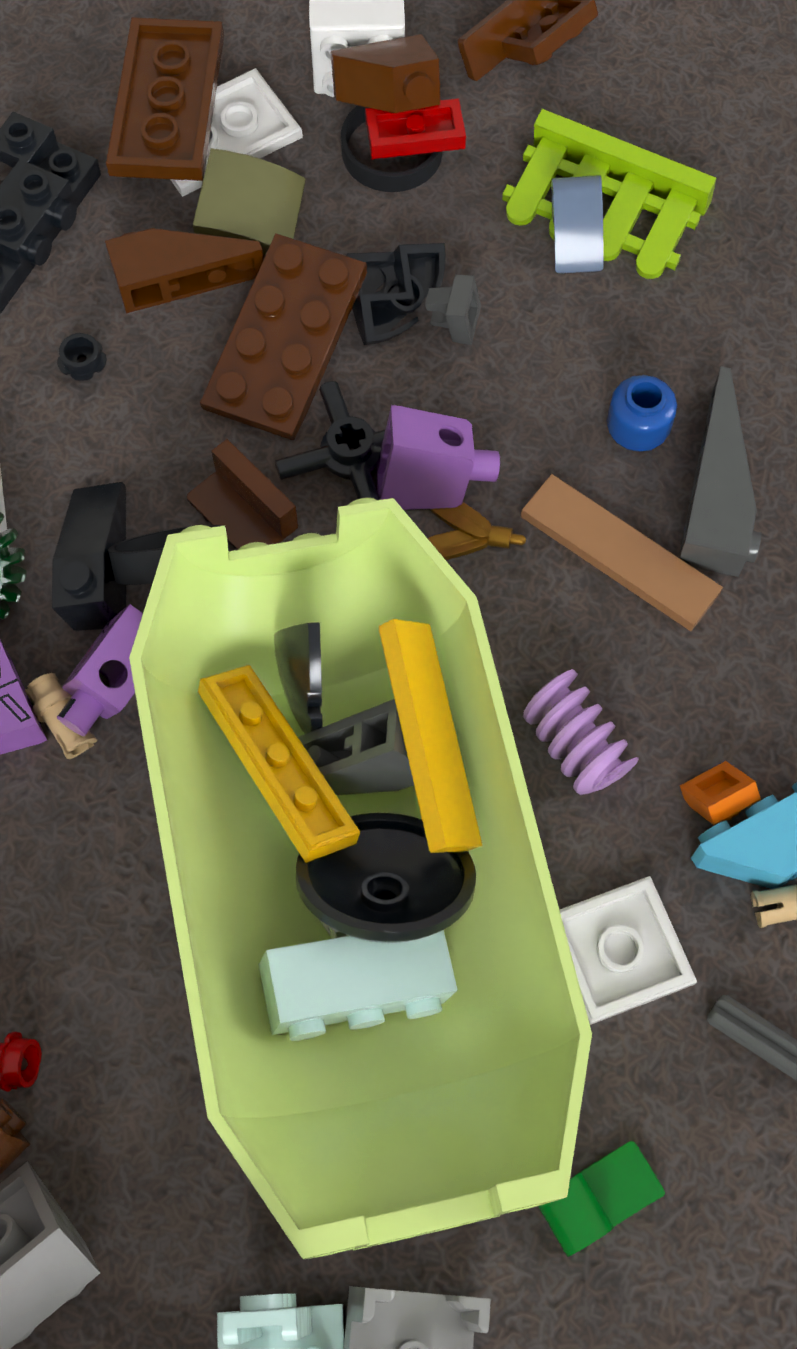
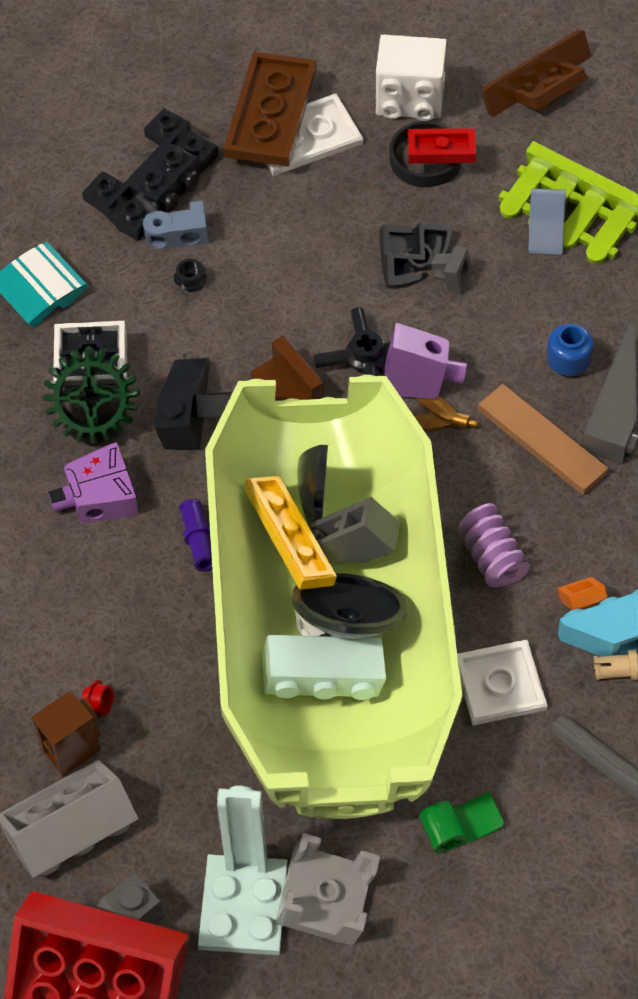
camera: 10 degrees right, 10 degrees down
(48, 702) = (148, 495): tan pin -> none
(53, 288) = (176, 228): none -> sand blue leg
(111, 658) = (183, 473): medium lavender torso -> none
(133, 767) = (197, 533): none -> dark purple pin
(174, 265) = (260, 220): reddish brown slope -> none
(248, 199) = (319, 185): olive slope -> none
(284, 336) = (331, 275): reddish brown plate -> none
(387, 74) = (426, 108): reddish brown slope -> none
(430, 737) = (389, 523): yellow tile -> none

